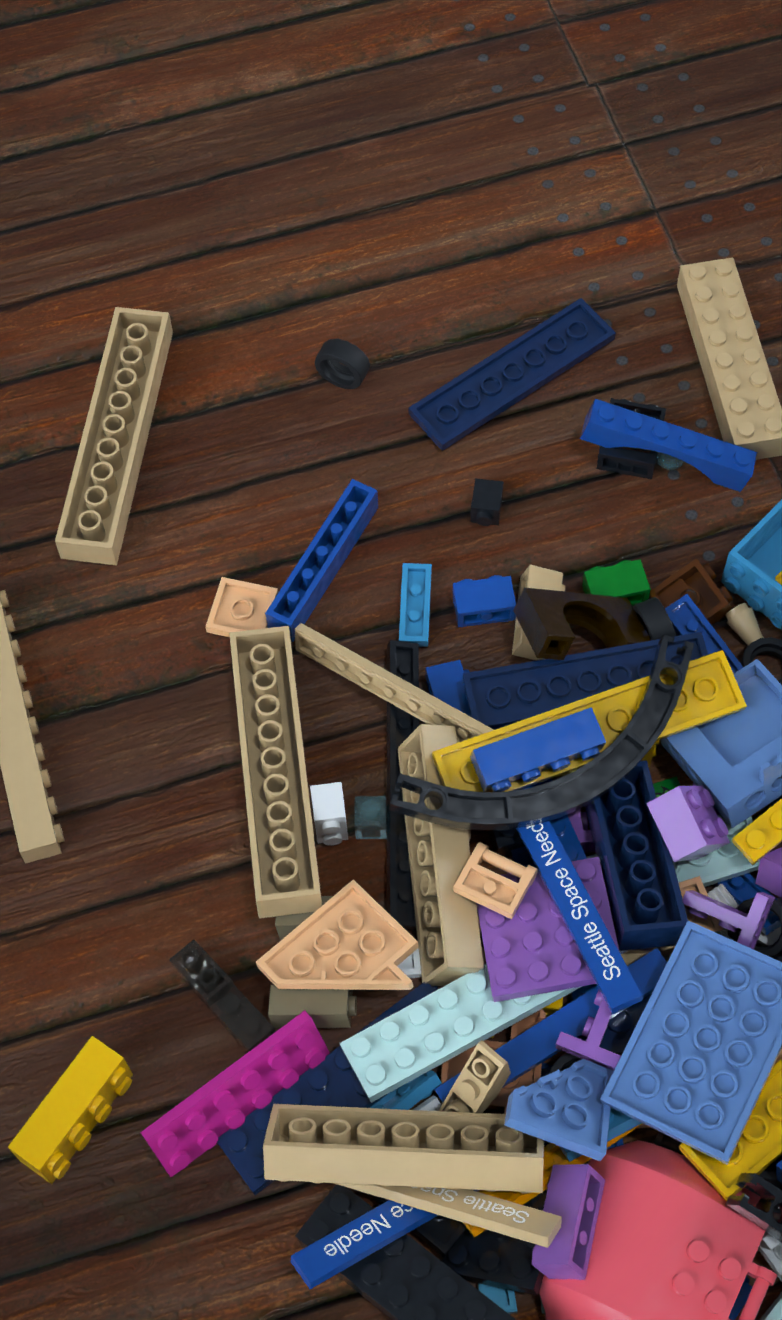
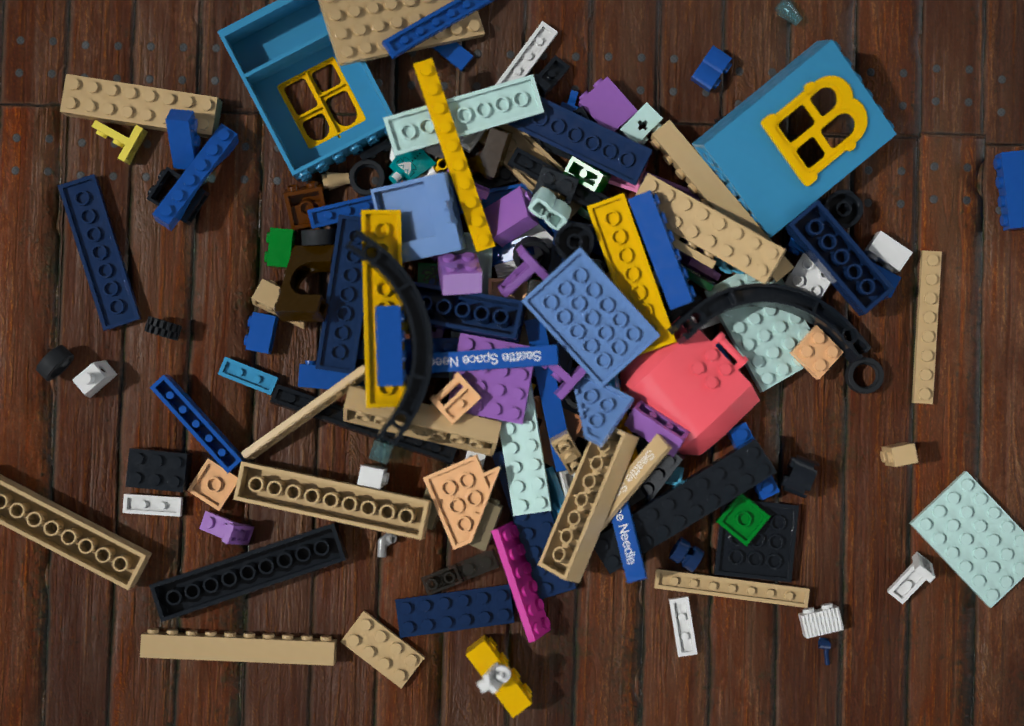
camera: 65 degrees left, 25 degrees up
(64, 924) = (382, 649): none -> tan plate
(65, 1083) = (494, 678): none -> white hips
(132, 696) = (249, 571): none -> black brick
(156, 1011) = (454, 610): none -> dark blue plate
(181, 648) = (228, 530): none -> medium lavender bracket
(186, 543) = (152, 505): none -> white plate
(231, 870) = (383, 542): none -> light grey arm
(239, 532) = (158, 469): none -> black brick
(339, 415) = (93, 378): none -> white torso
(441, 474) = (163, 328): none -> black tyre
(486, 502) = (192, 305): black brick -> none
(673, 360) = (129, 145): none -> light yellow bracket
(718, 406) = (182, 137): none -> blue brick

